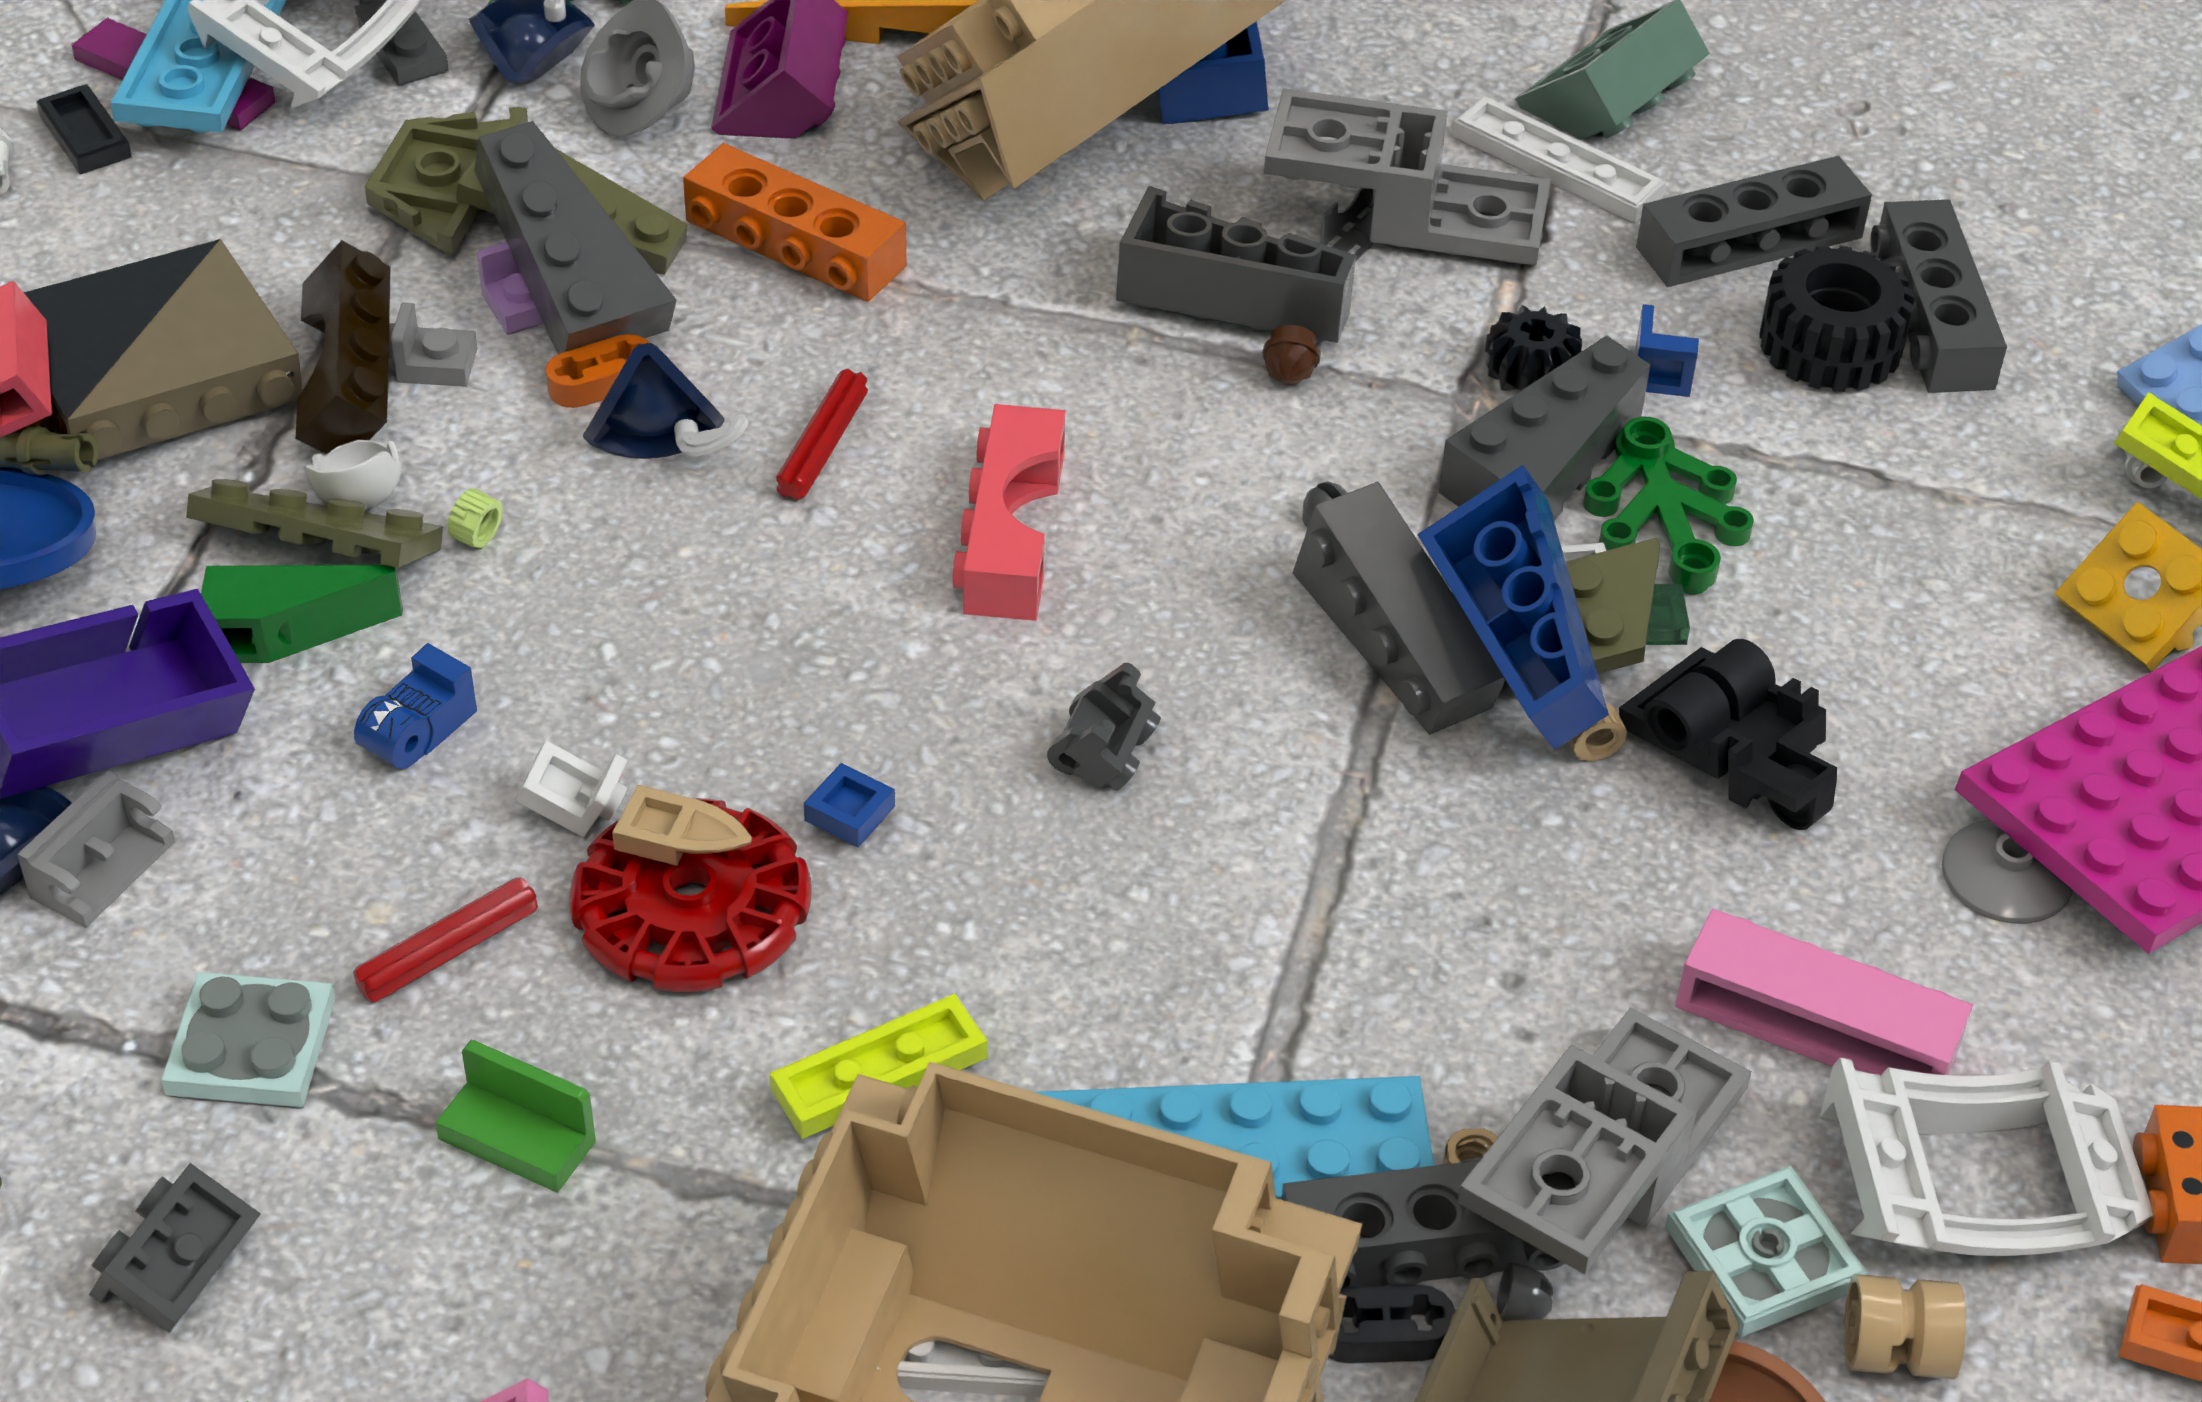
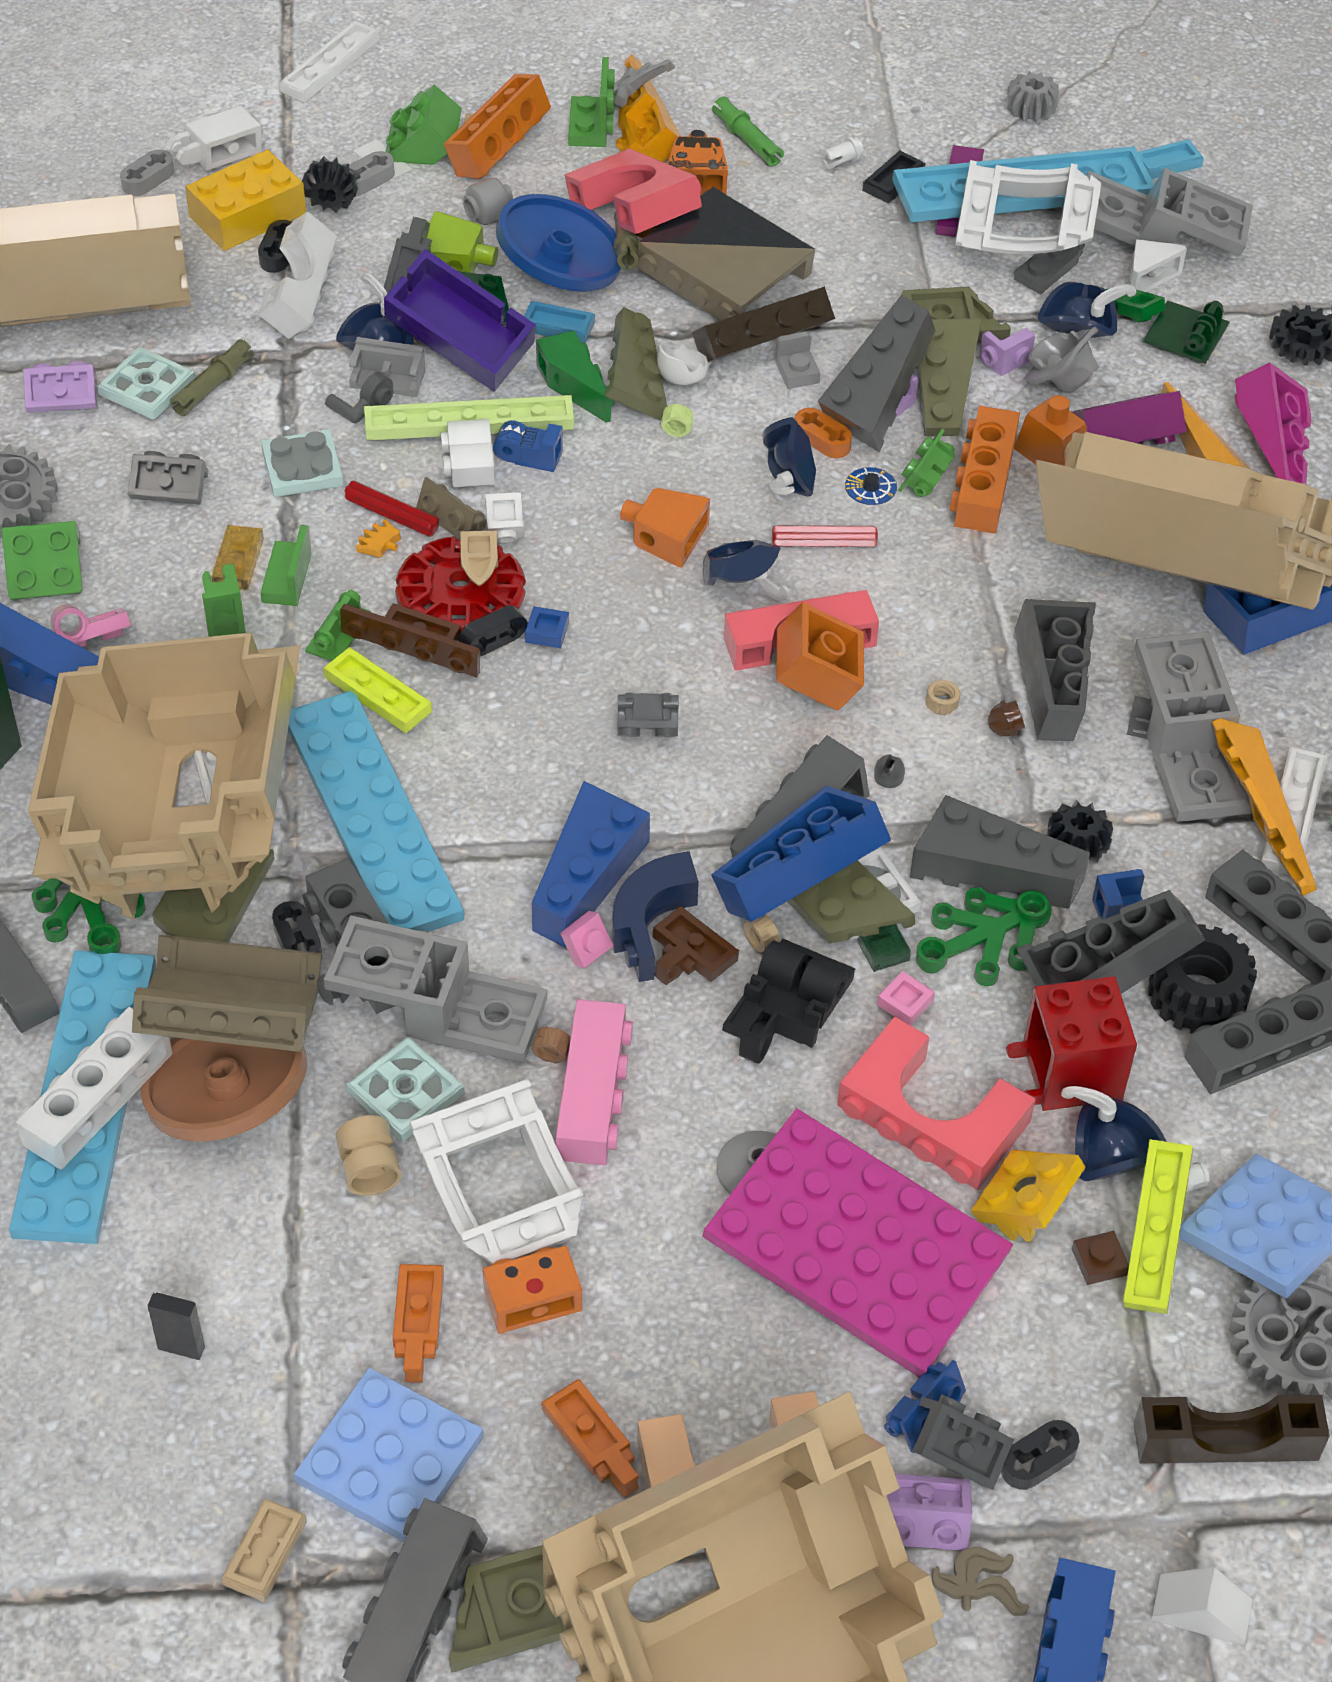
camera: 70 degrees right, 5 degrees up
(142, 580) = (556, 320): none -> dark azure tile
(152, 879) = (374, 392): none -> dark grey plate
(292, 780) = (431, 419): none -> yellowish green plate
(388, 791) = (469, 452): none -> white brick
(433, 1195) = (241, 547): none -> clear yellow plate
(504, 979) = (379, 540): none -> light orange piece
(528, 850) = (449, 509): none -> dark tan hinge
(571, 123) = (1006, 354): none -> lavender bracket
(602, 1216) = (223, 604): none -> bright green hinge
(701, 1086) = (329, 640): none -> bright green hinge
(707, 593) = (668, 523): none -> orange torso
(734, 360) = (870, 486): none -> blue piece
(741, 283) = (919, 472): none -> bright green hinge
(772, 991) = (412, 635): none -> reddish brown bracket
(790, 124) = (1048, 431): none -> orange torso
(827, 874) = (494, 629): none -> black beam
(849, 536) = (742, 563): none -> dark blue hat
(1107, 492) = (820, 656): none -> orange brick
(1210, 424) = (941, 688): none -> tan axle
(1391, 887) = (588, 860): none -> blue wedge
(1502, 859) = (645, 895): none -> dark blue arch
(1544, 930) = (586, 939): none -> bright pink plate
(1581, 164) = (1250, 762): none -> light orange wedge
(1594, 817) = (691, 947): none -> reddish brown hinge
(1735, 1033) = (551, 1044): none -> medium nougat axle
(1766, 614) = (905, 998): none -> bright pink plate
(1809, 378) = (1122, 946): none -> dark grey wedge
(1936, 451) = (1077, 1038): none -> red container
(1936, 693) = (963, 1146): none -> coral arch
(2065, 488) = (1110, 1134): none -> dark blue hat

